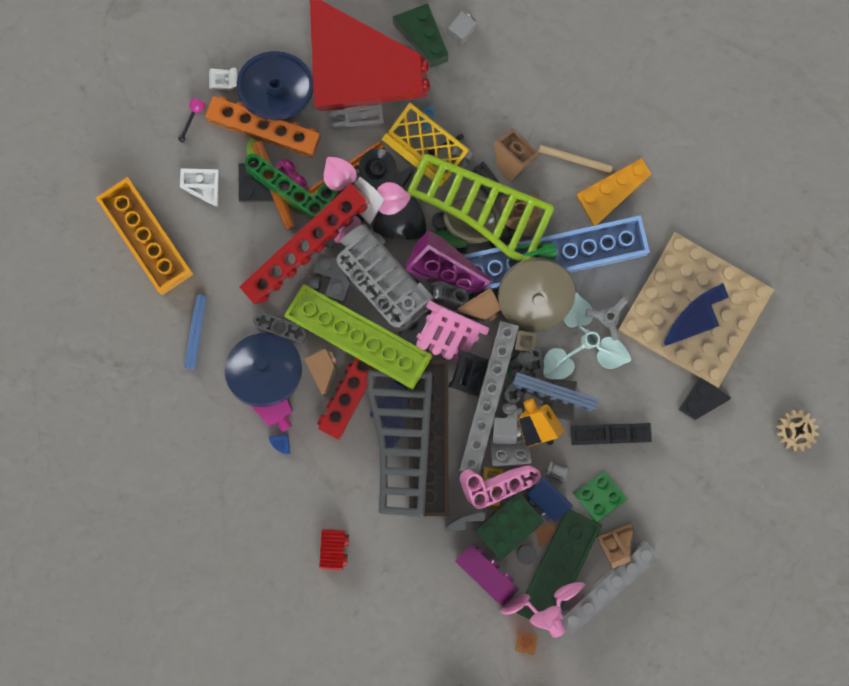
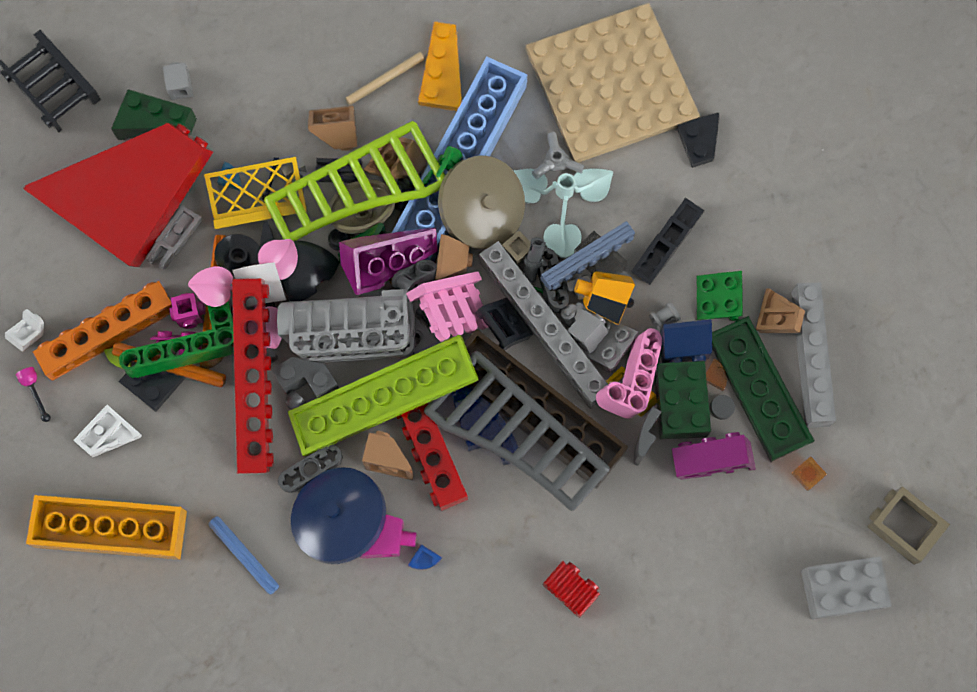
camera: 50 degrees left, 10 degrees down
(274, 85) = (76, 287): dark blue dish -> none
(310, 163) = (181, 310): none -> dark pink brick
(550, 618) = (805, 424): bright pink plant -> none
(696, 316) = (619, 82): clear blue slope -> none
(792, 436) = (795, 78): tan gear -> none

